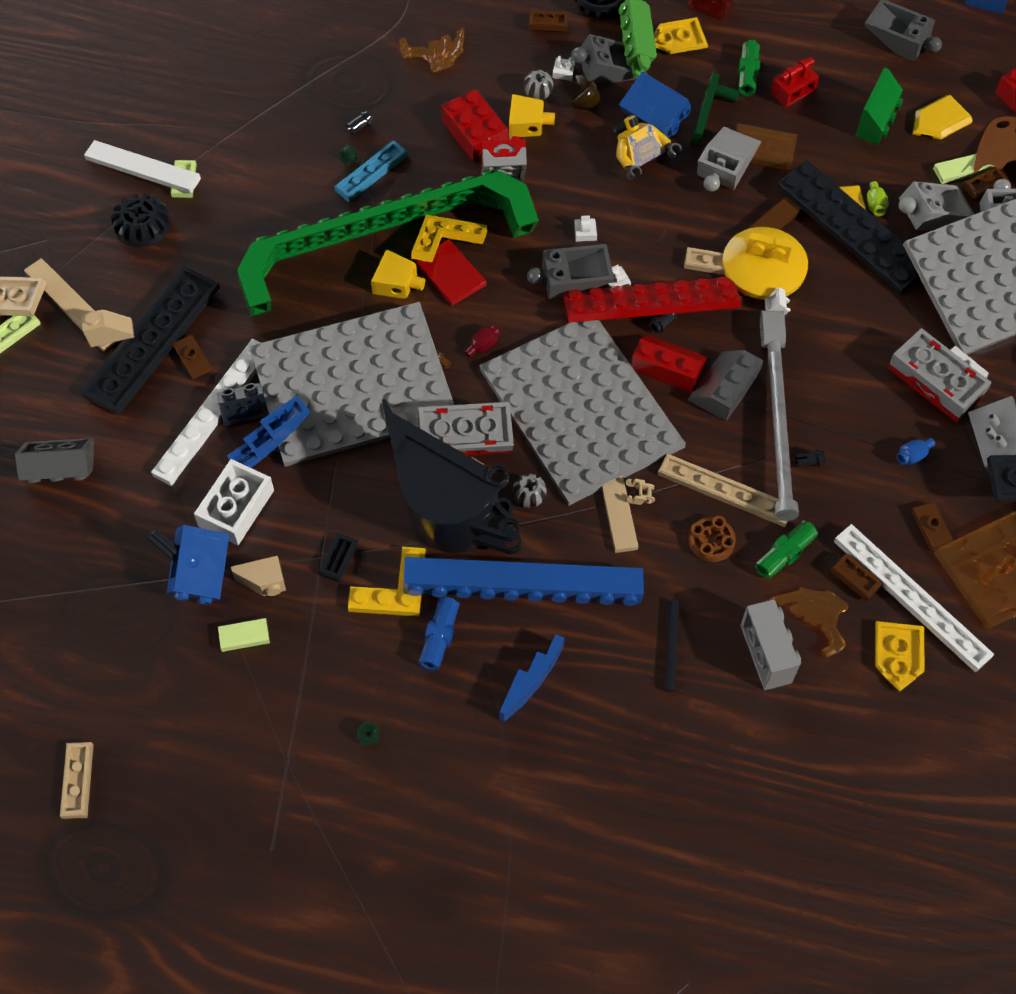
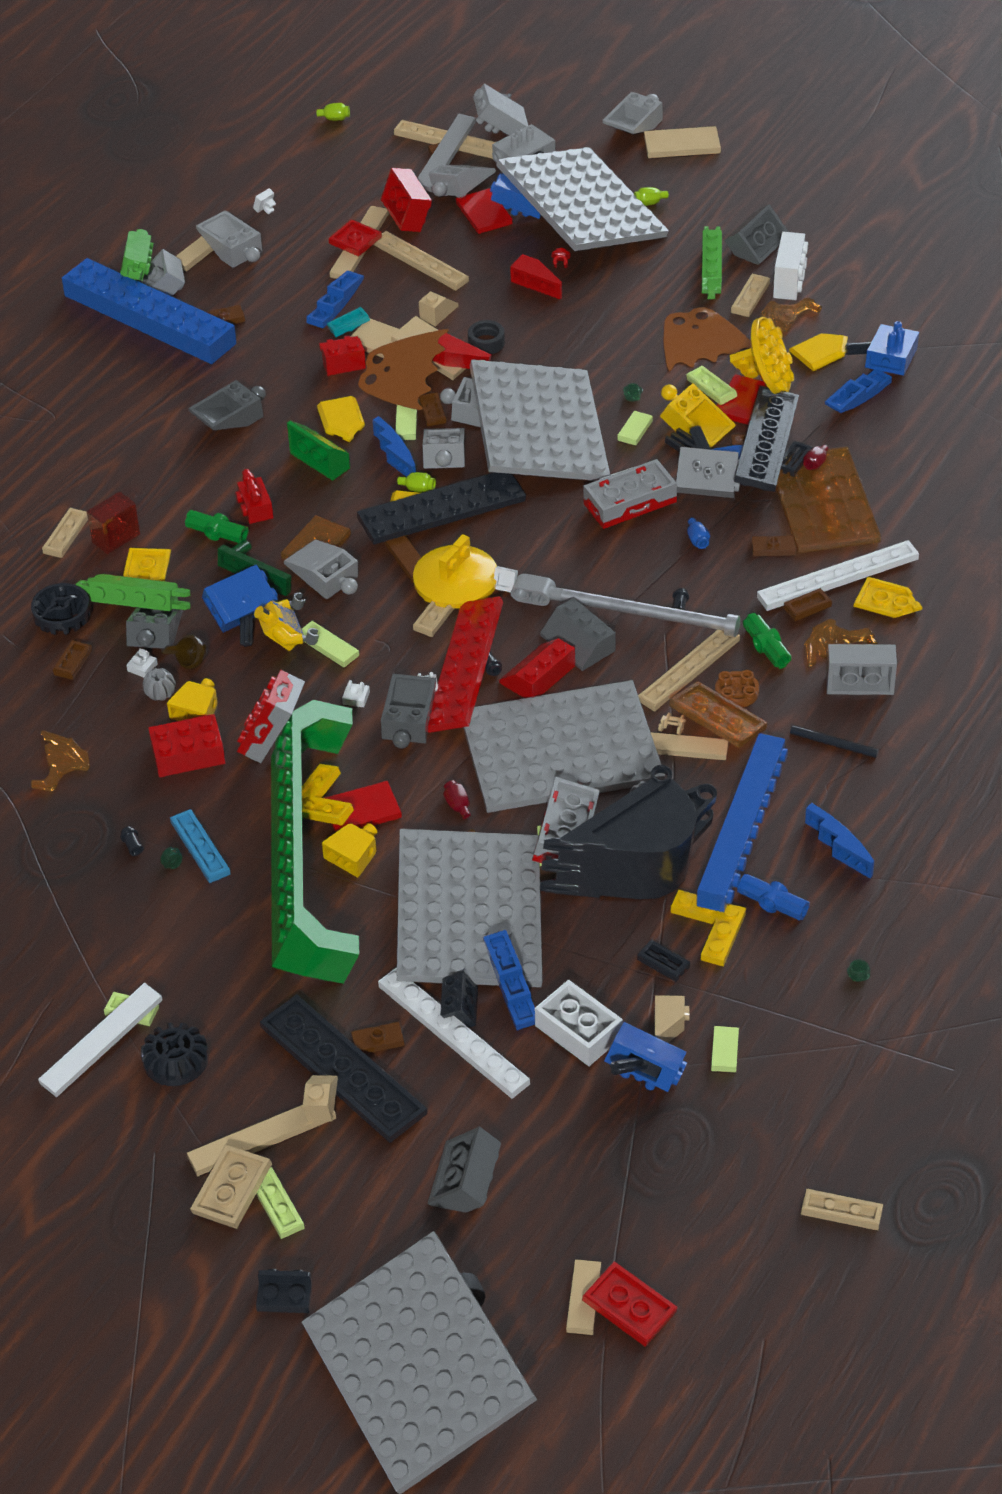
camera: 70 degrees left, 15 degrees down
(640, 192) = (332, 646): none -> yellowish green tile
(664, 528) = (718, 714): none -> clear orange plate
(912, 170) = (396, 450): none -> blue slope

